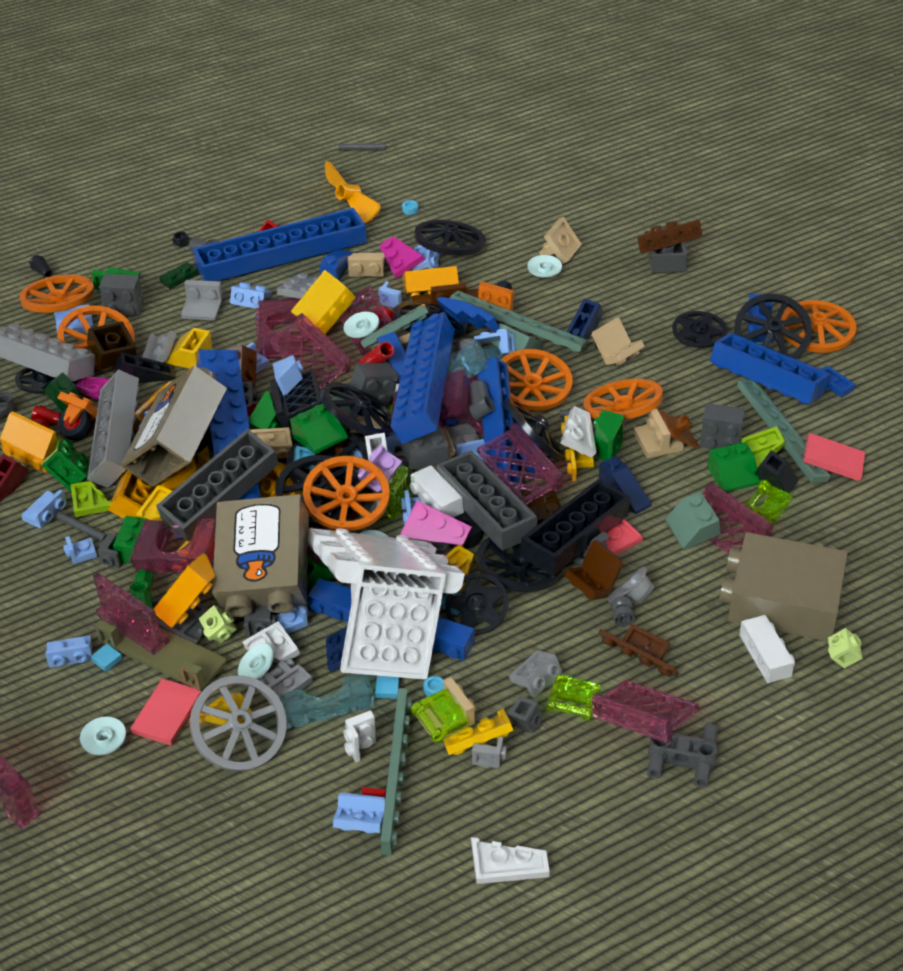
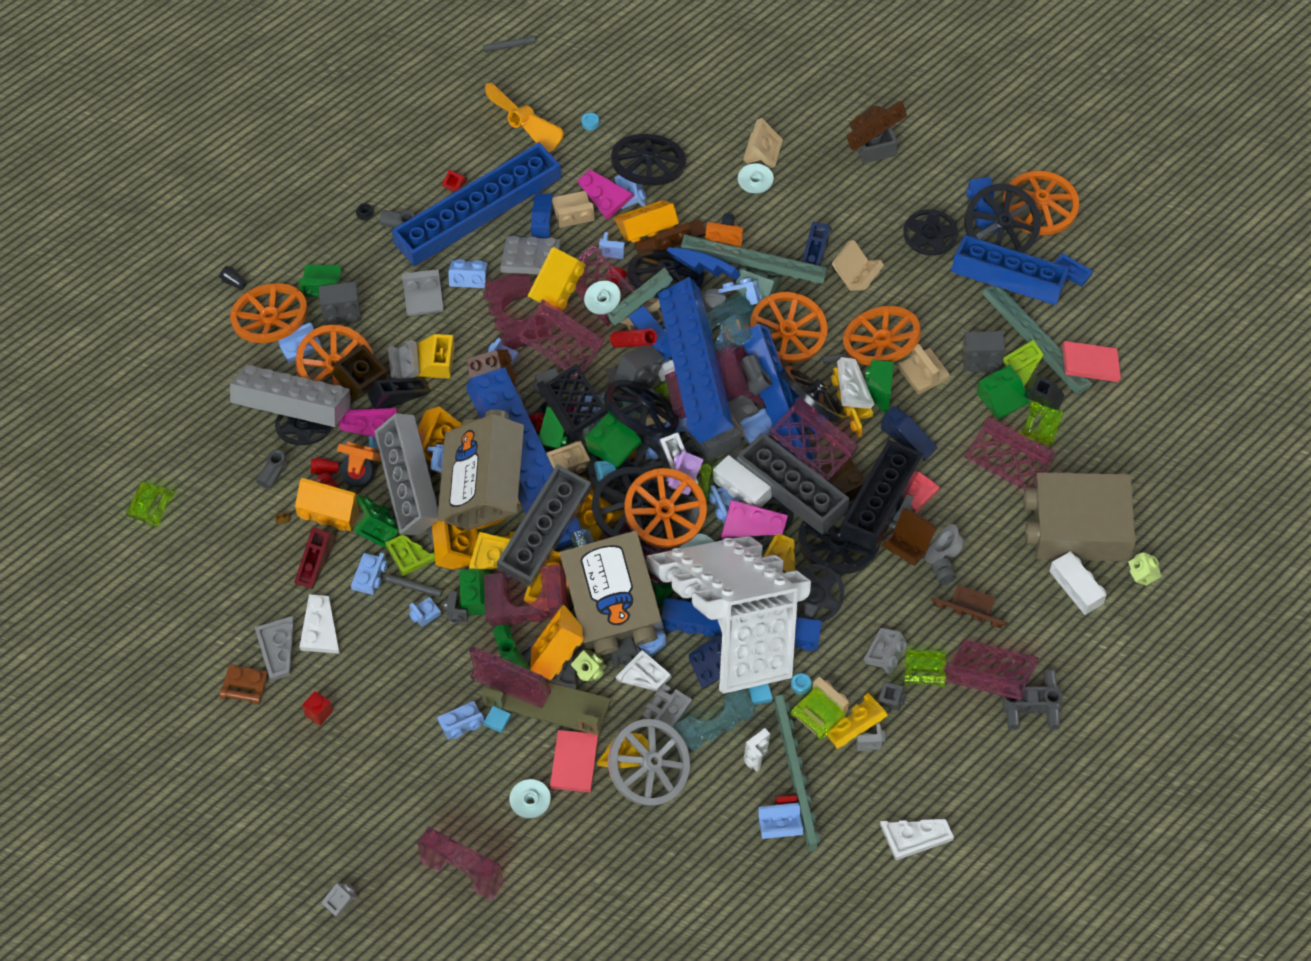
camera: 15 degrees left, 15 degrees up
(57, 385) = (330, 437): dark green slope -> none
(178, 275) = (382, 260): dark green plate -> none
(256, 661) = (631, 694): light aqua dish -> none
(287, 373) = (555, 376): light blue slope -> none
(679, 428) = (942, 358): dark orange piece -> none
(693, 521) = (982, 463): sand green slope -> none

